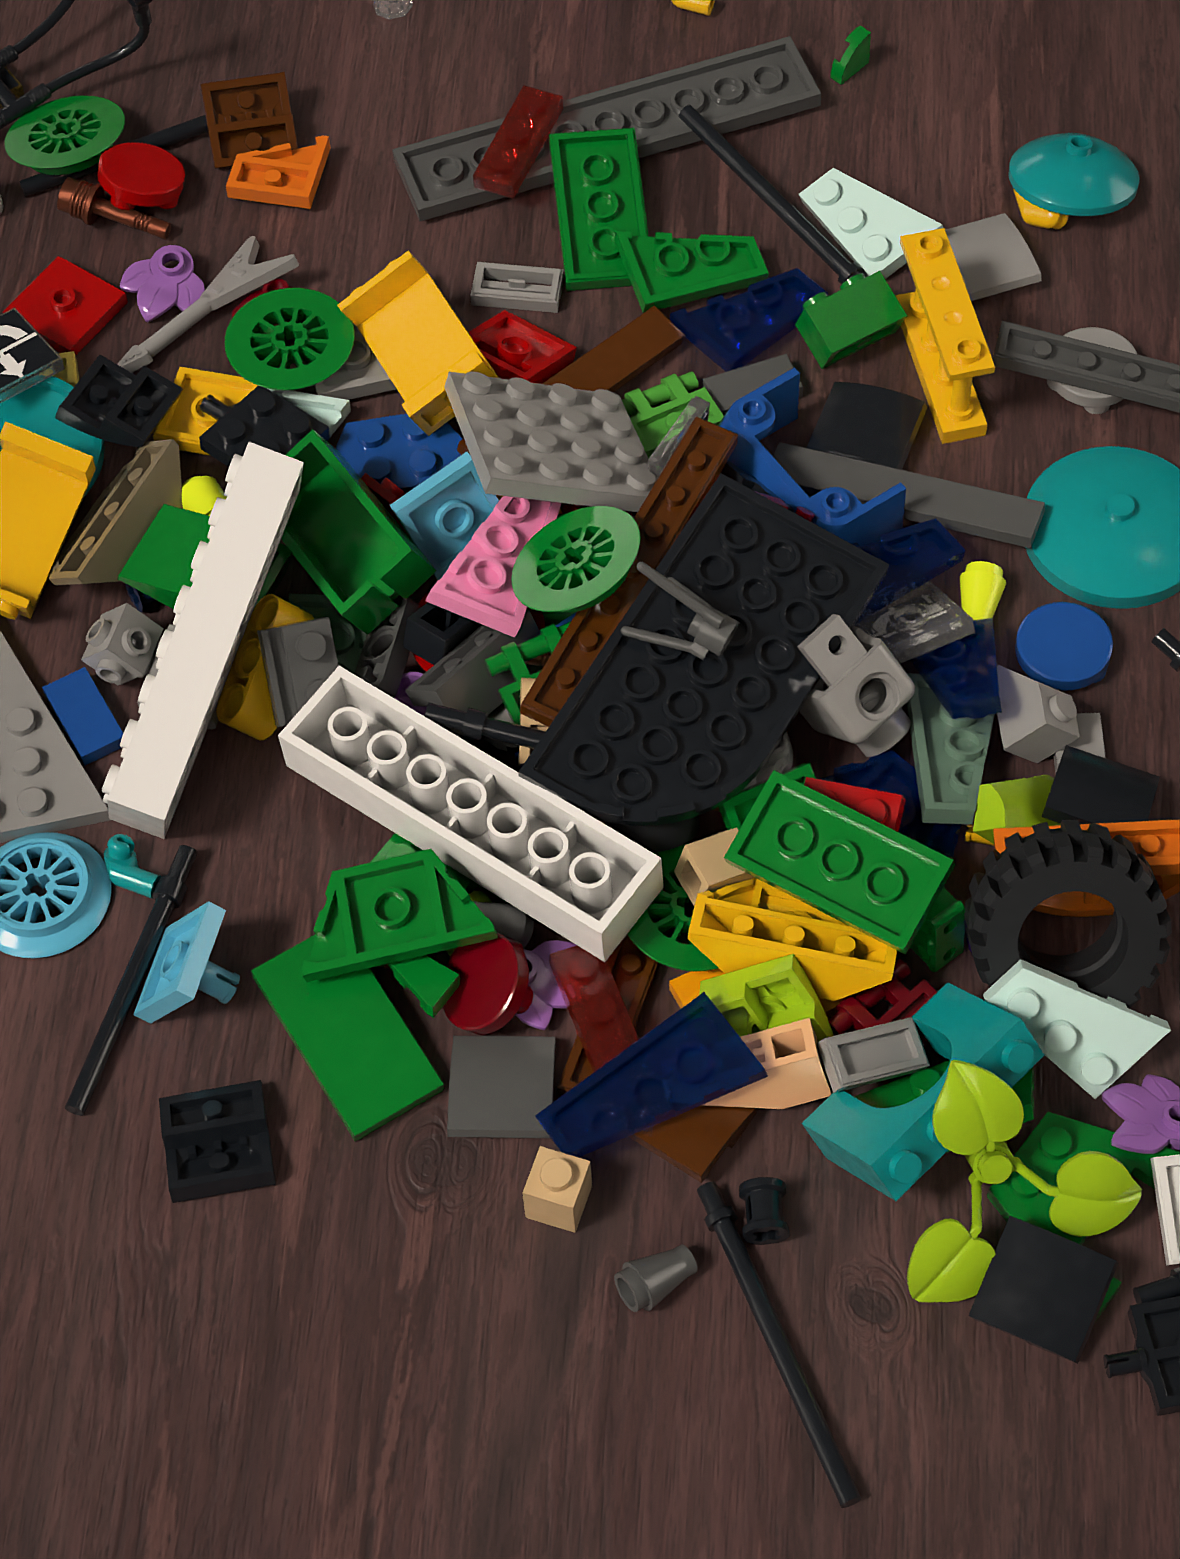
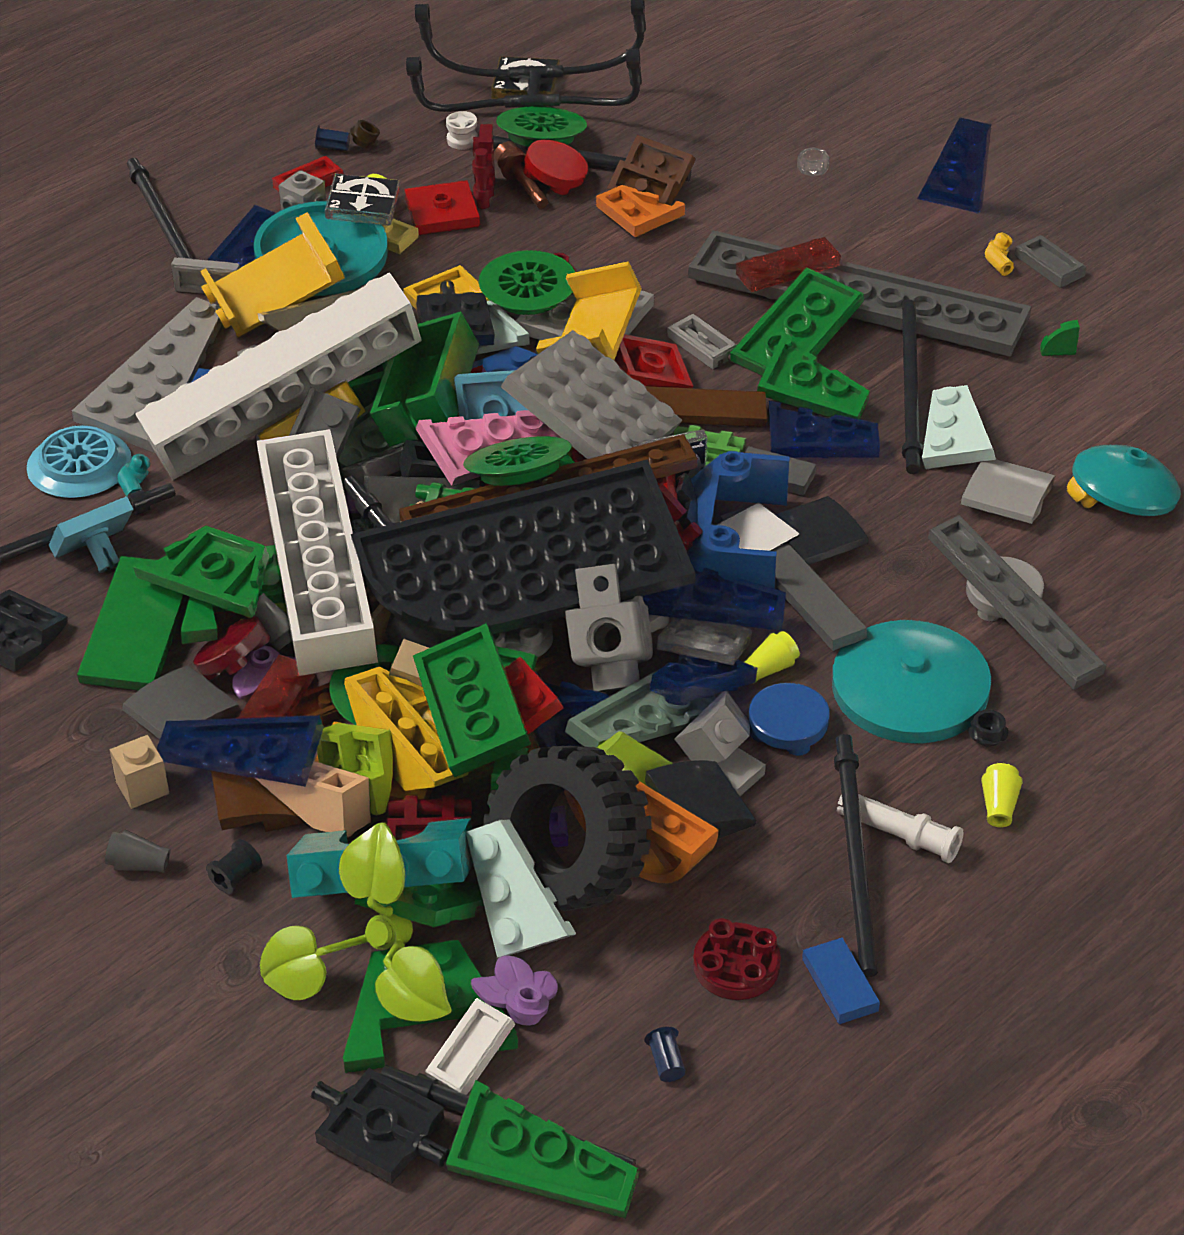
camera: 40 degrees right, 15 degrees down
(76, 226) = (484, 166): none -> dark red plate
(117, 403) = (399, 253): black slope -> none
(163, 287) = (508, 224): medium lavender plate -> none
(232, 282) = (551, 244): light grey piece -> none
(709, 627) = (538, 529): dark grey plant -> none
(722, 1221) = (157, 942): black bar -> none
(823, 463) = (760, 528): none -> white sticker
(850, 318) = (874, 466): green brick -> none
(872, 1054) = (367, 810): light grey tile -> none
(944, 336) = (911, 502): yellow fence -> none
(1043, 1289) = (329, 1020): black slope -> none

